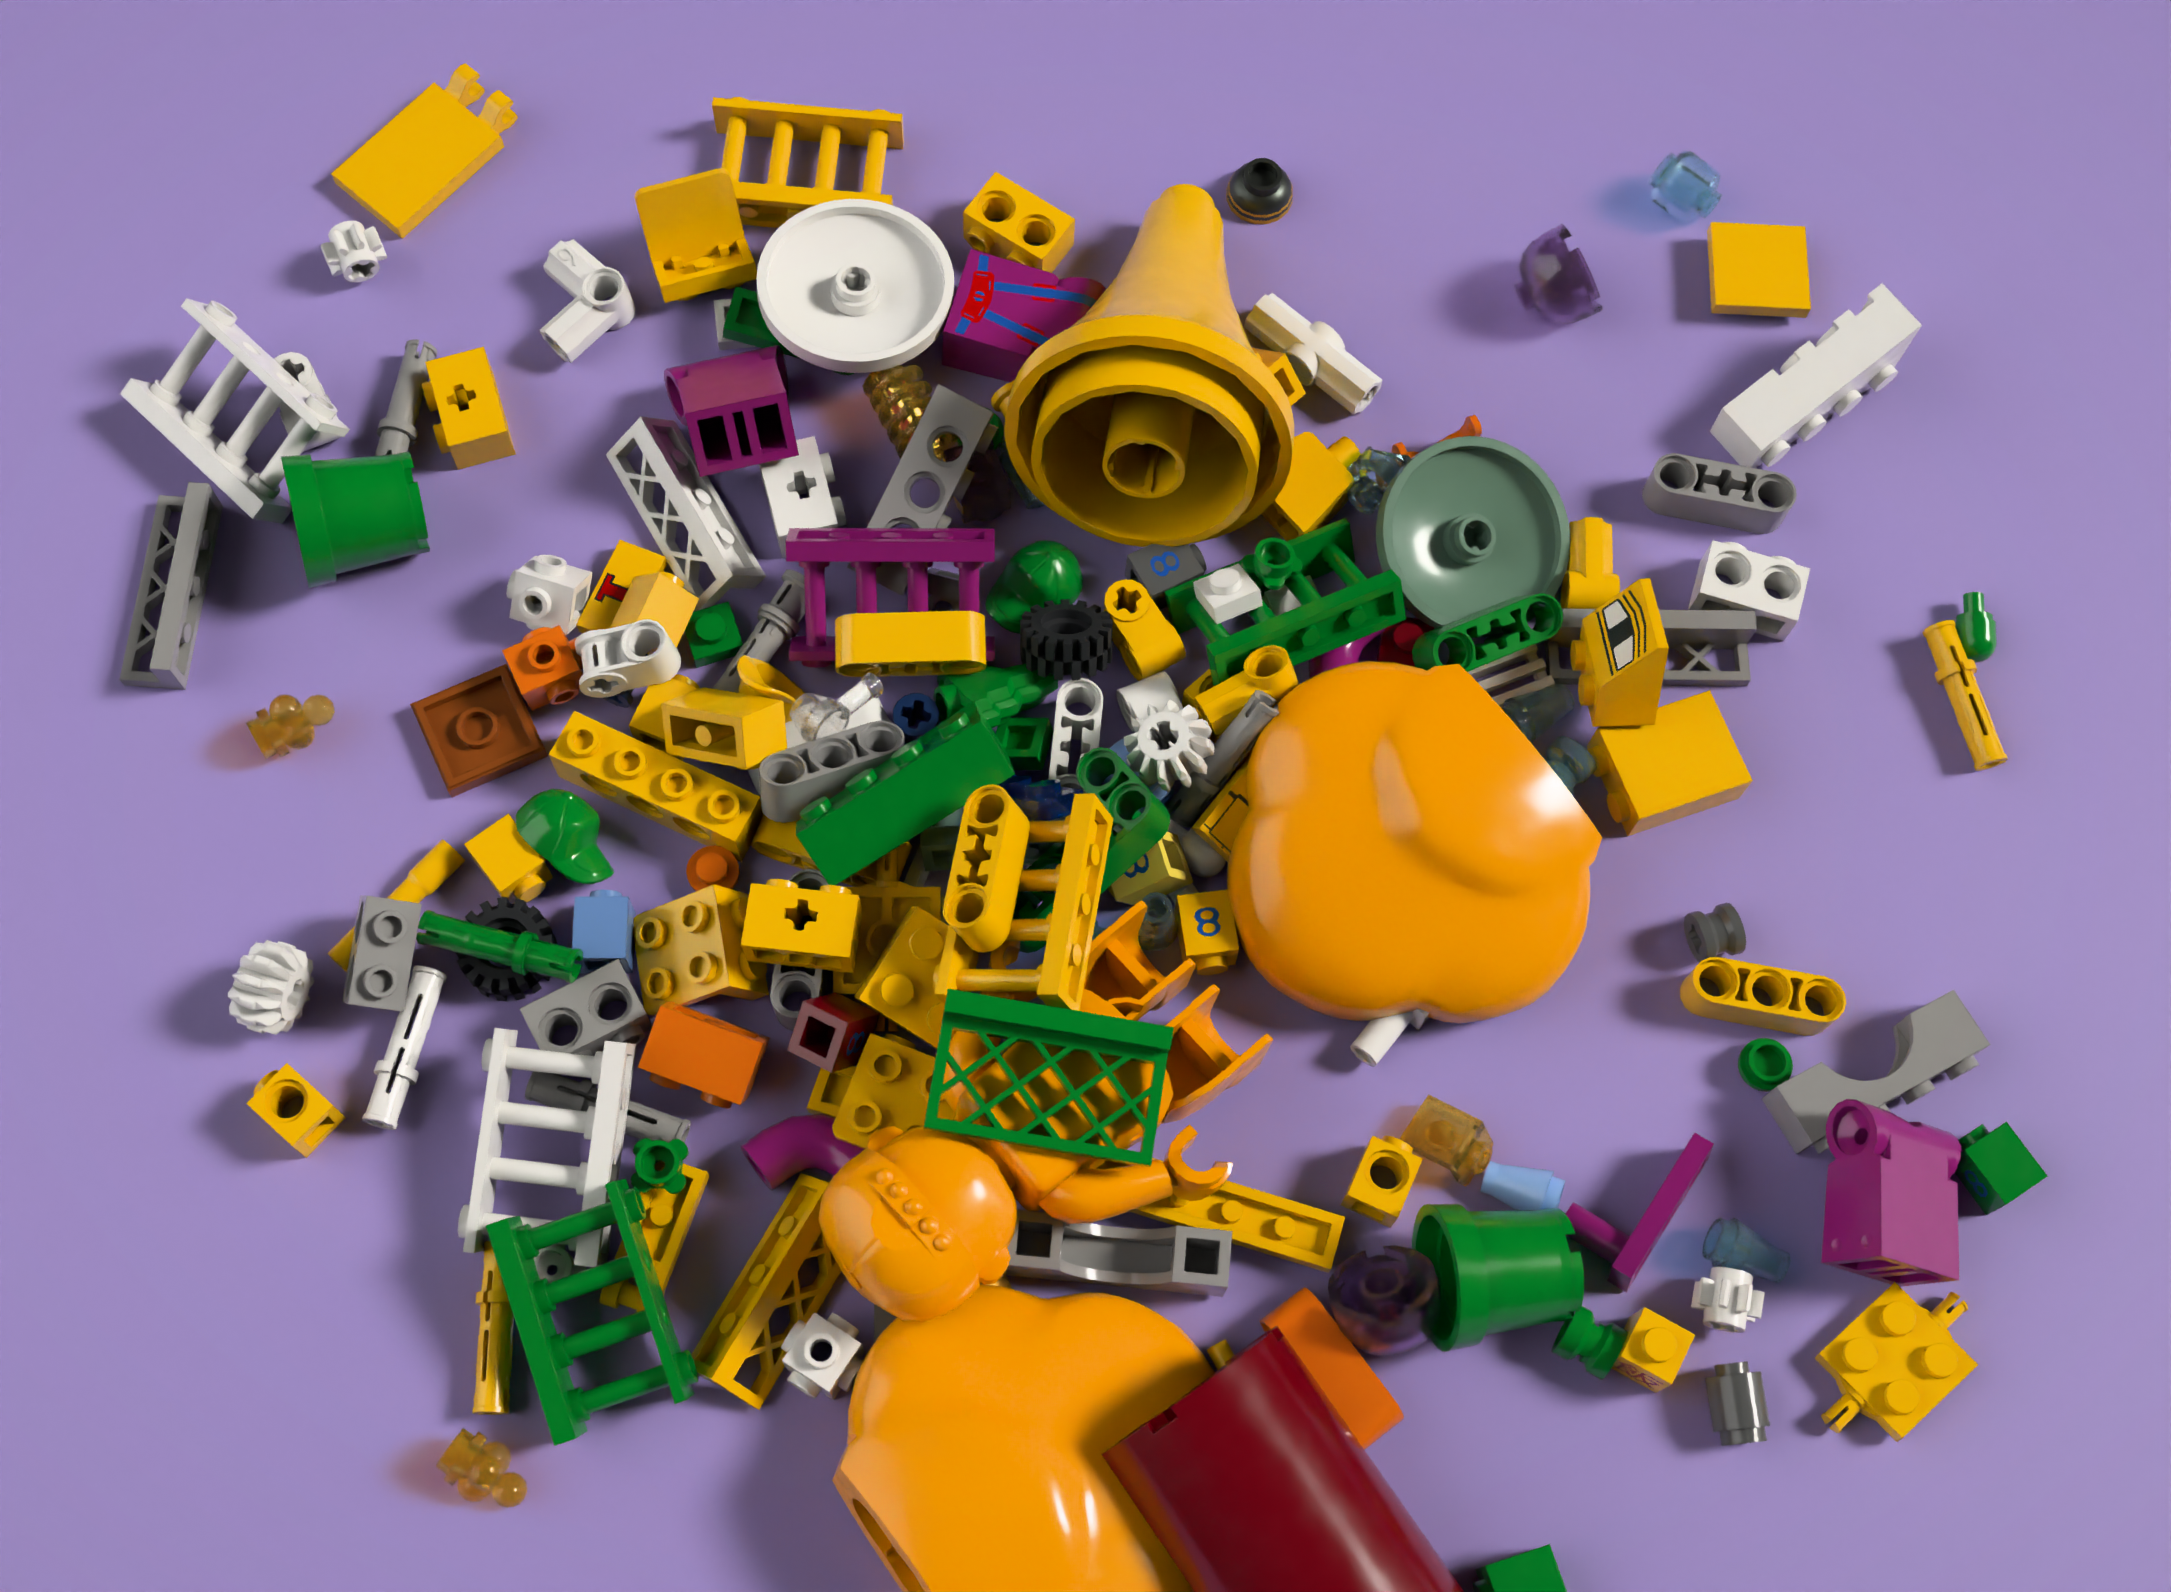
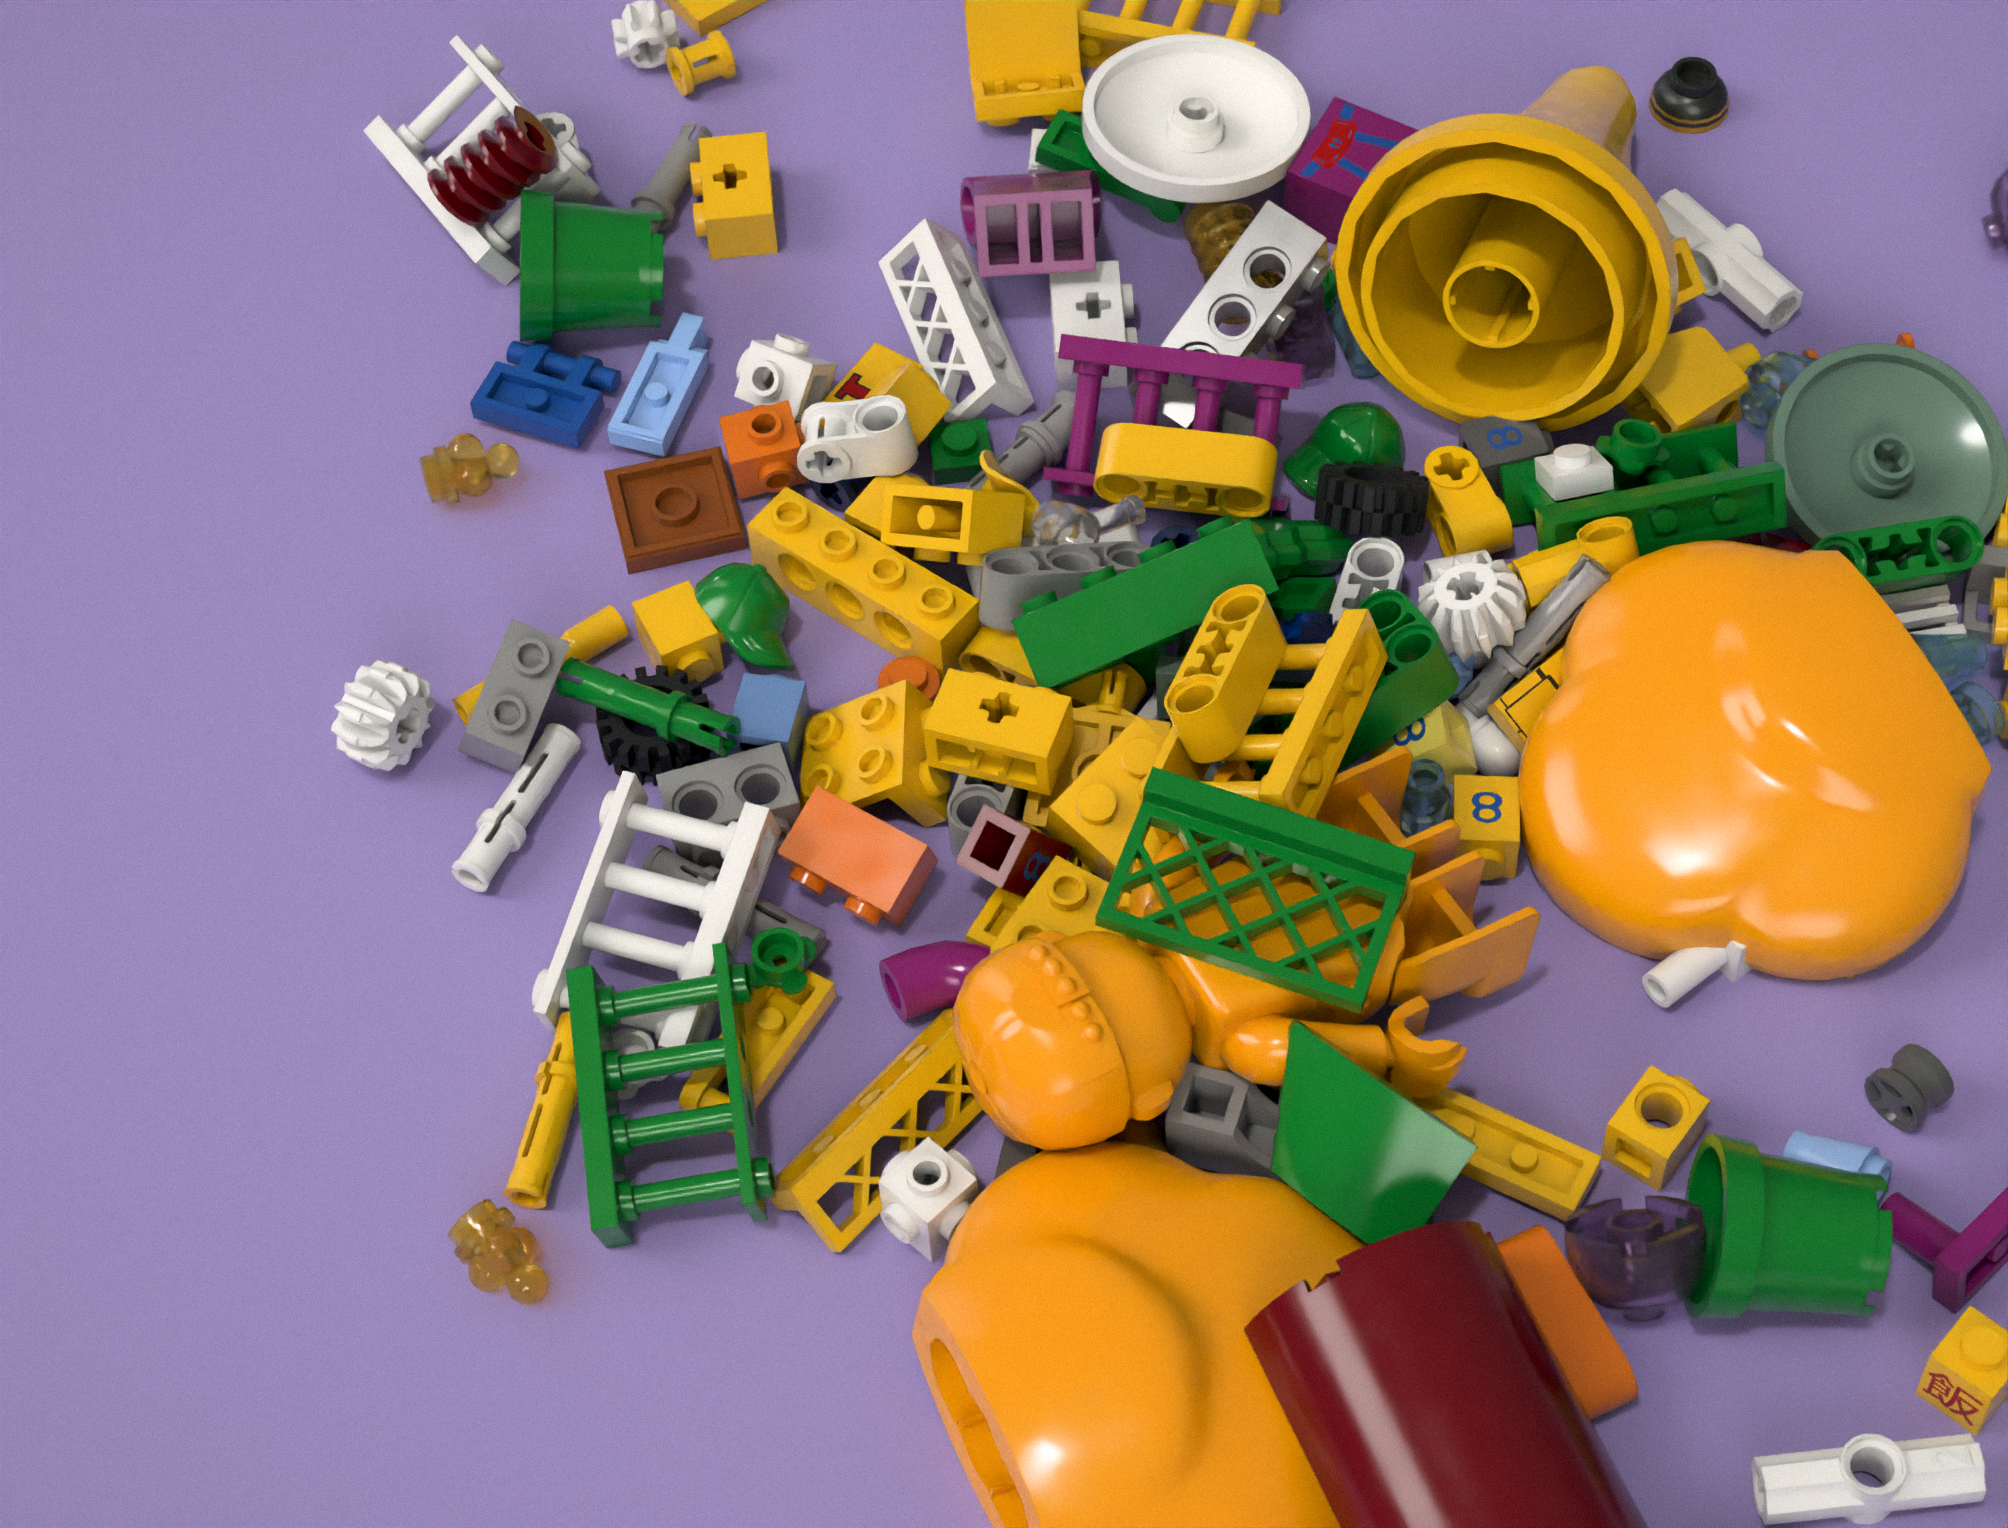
camera: 20 degrees right, 15 degrees down
(181, 596) = (377, 337): light grey fence -> none
(251, 435) = (495, 171): none -> dark red piece
(307, 1128) = (387, 867): yellow brick -> none
(337, 645) = (543, 405): none -> blue plate
(408, 272) = (719, 63): none -> yellow bush
(444, 614) = (662, 389): none -> light blue hinge
(587, 315) = (902, 110): white piece -> none
(1024, 221) = (1396, 85): yellow brick -> none
(1164, 1266) = (1360, 1142): none -> green slope
(1450, 1139) = (1754, 1097): clear yellow bracket -> none
(1568, 1108) = (1909, 1087): none -> dark grey wheel
(1595, 1344) = (1892, 1348): green wheel -> none
(1617, 1447) = (1911, 1471): none -> white piece

